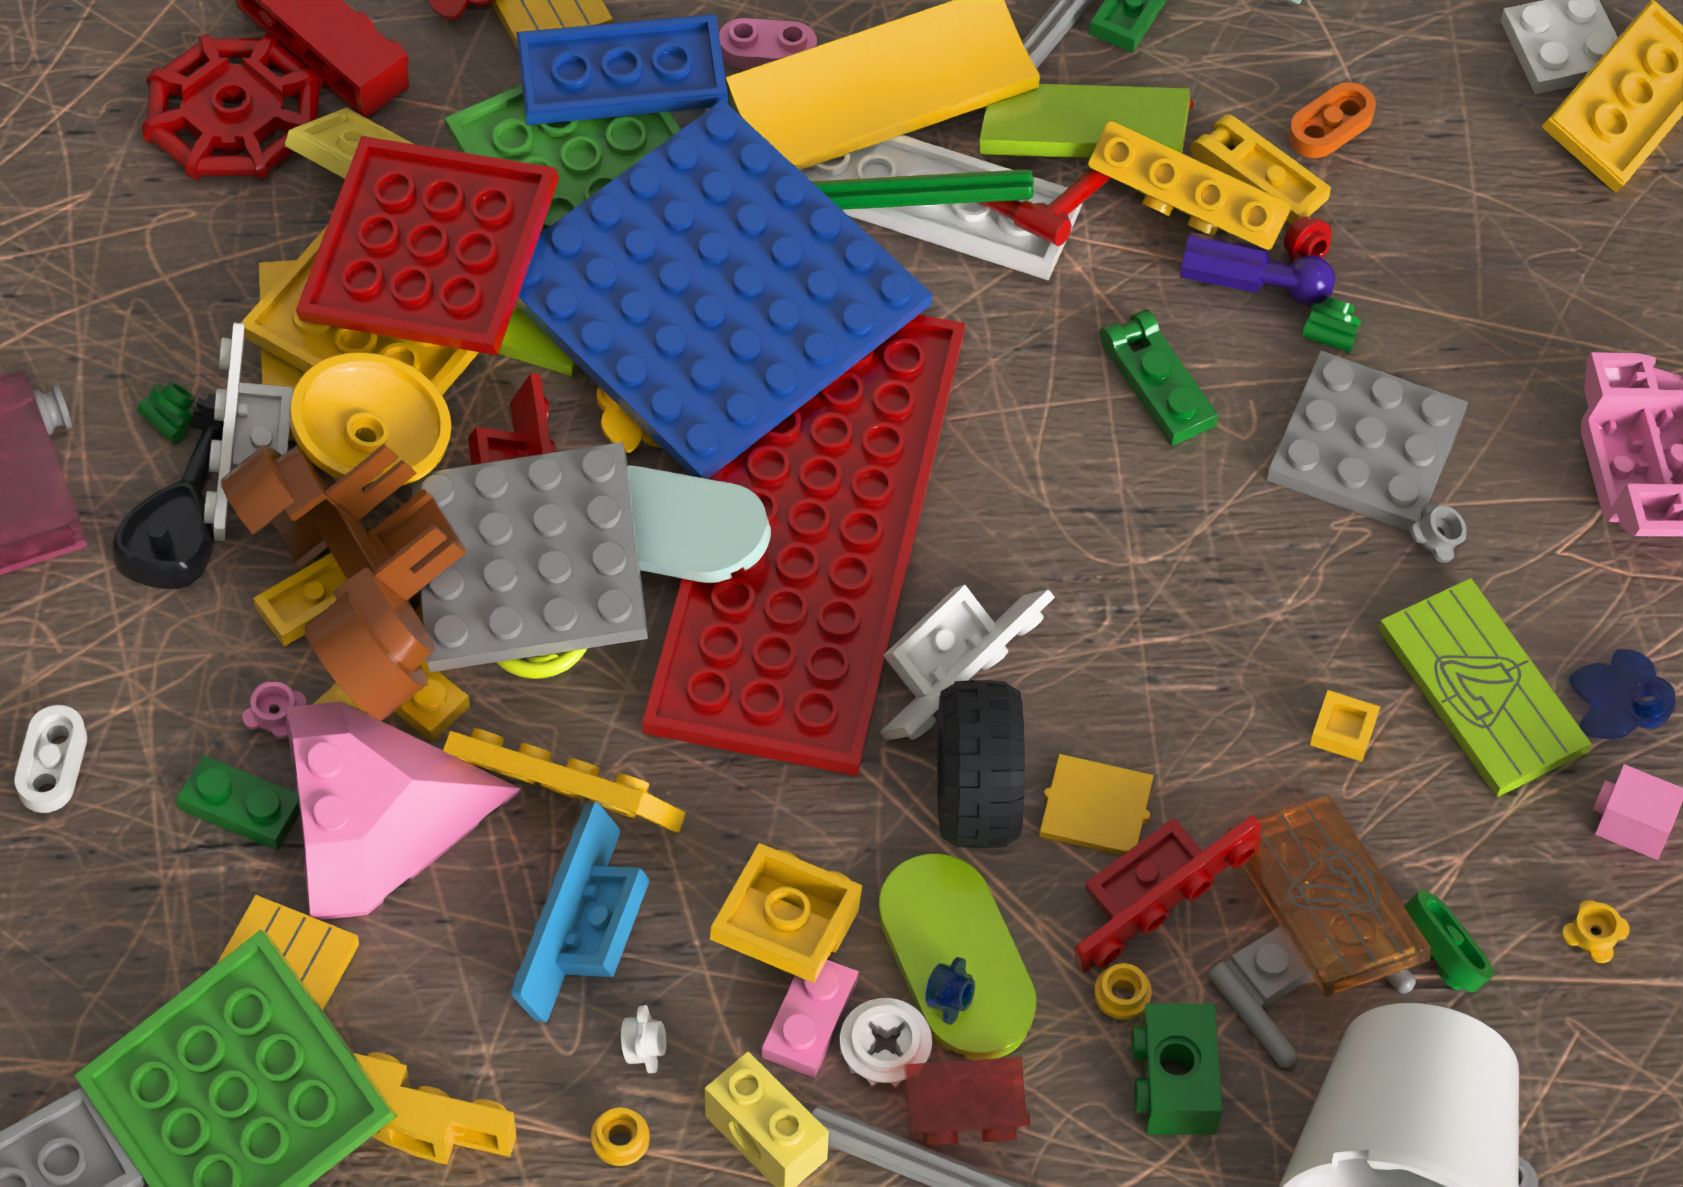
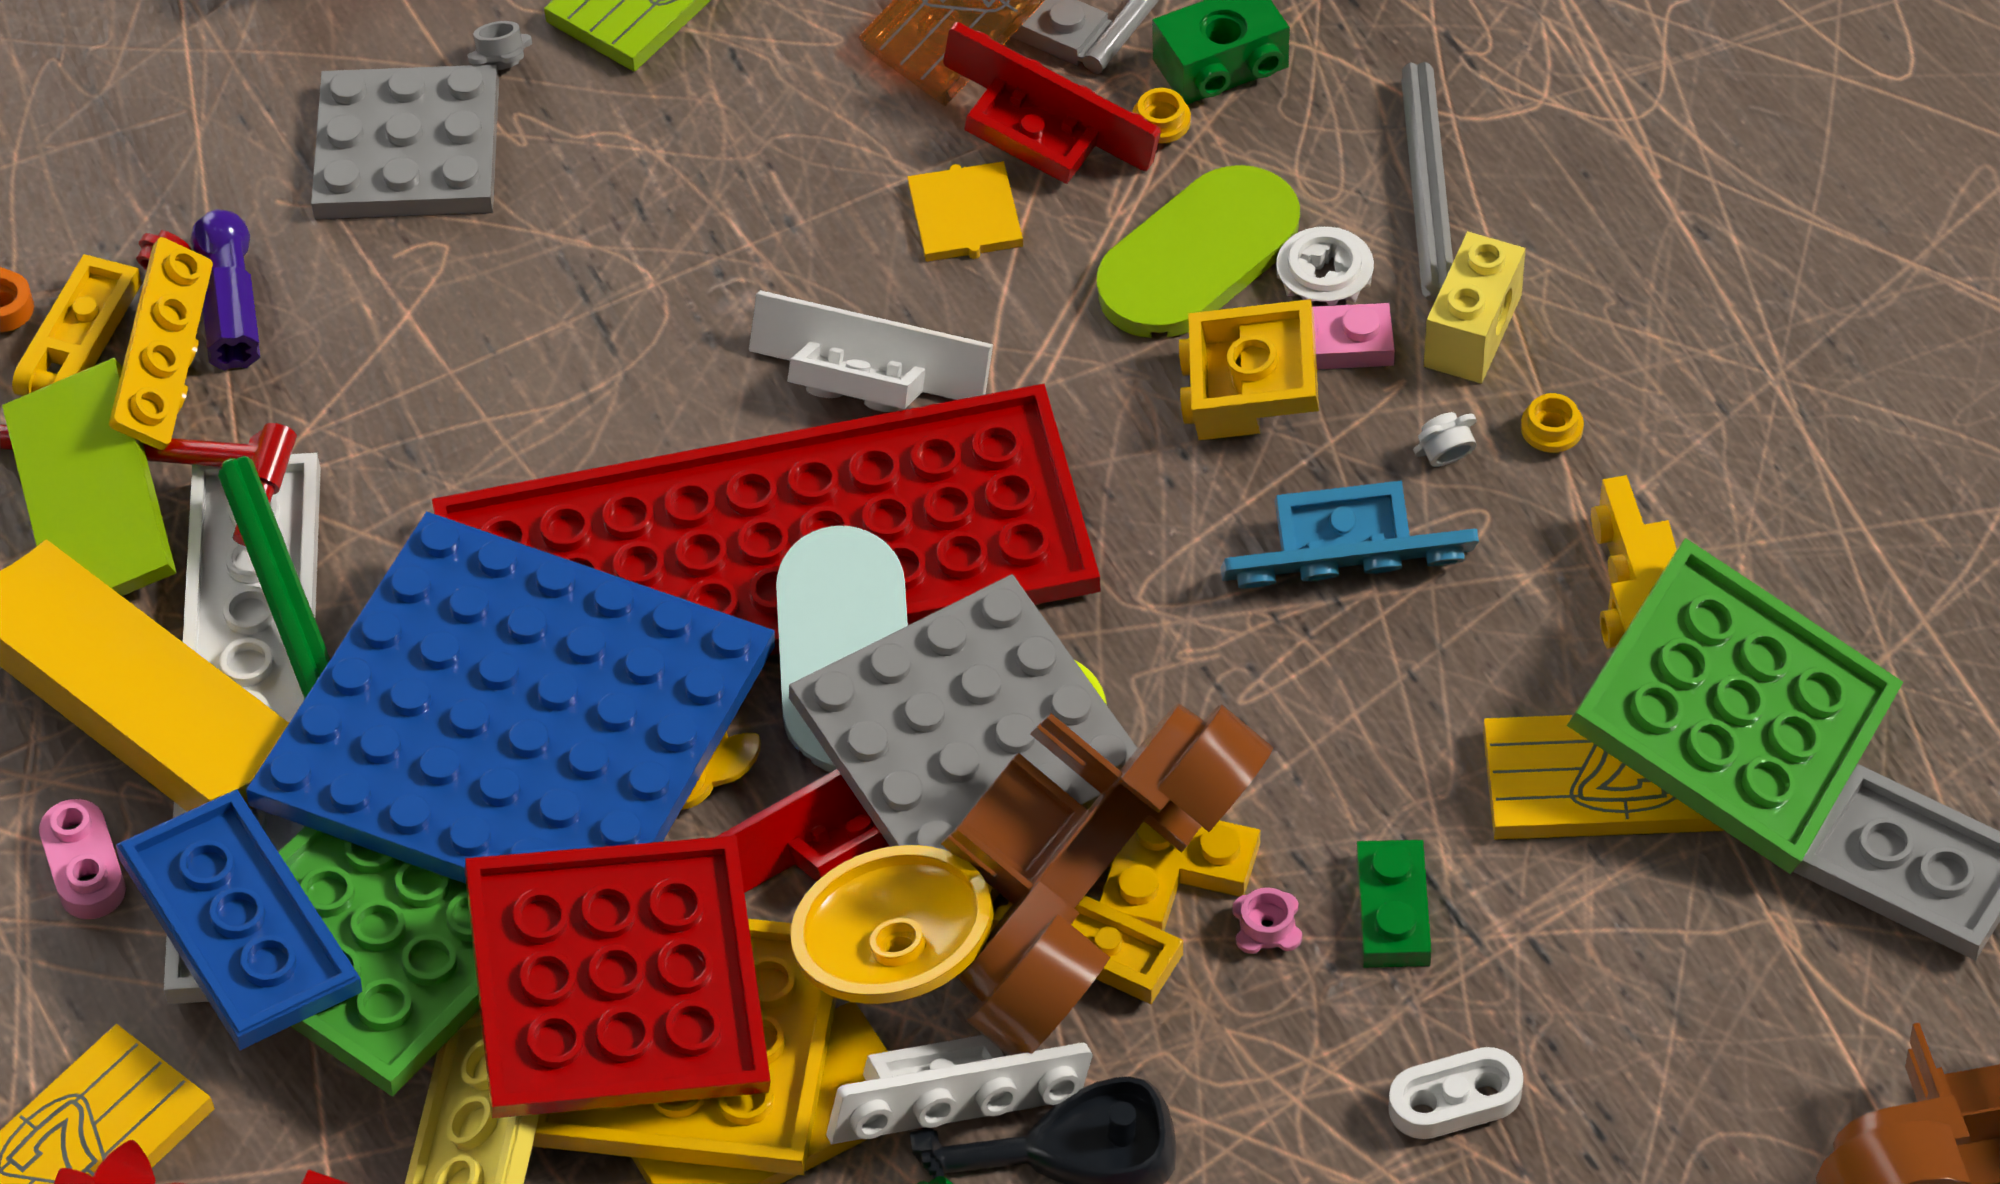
camera: 110 degrees left, 5 degrees down
(377, 805) = (1329, 765): bright pink wedge -> none
(576, 780) = (1211, 593): yellow wing -> none
(950, 989) = (1255, 212): plate -> none
(966, 1098) = (1355, 177): clear red bracket -> none
(980, 764) = (1006, 257): black tyre -> none
(1158, 378) = (409, 330): green plate -> none
(1333, 324) = (266, 207): green plate -> none
(1344, 725) = (773, 47): yellow plate -> none

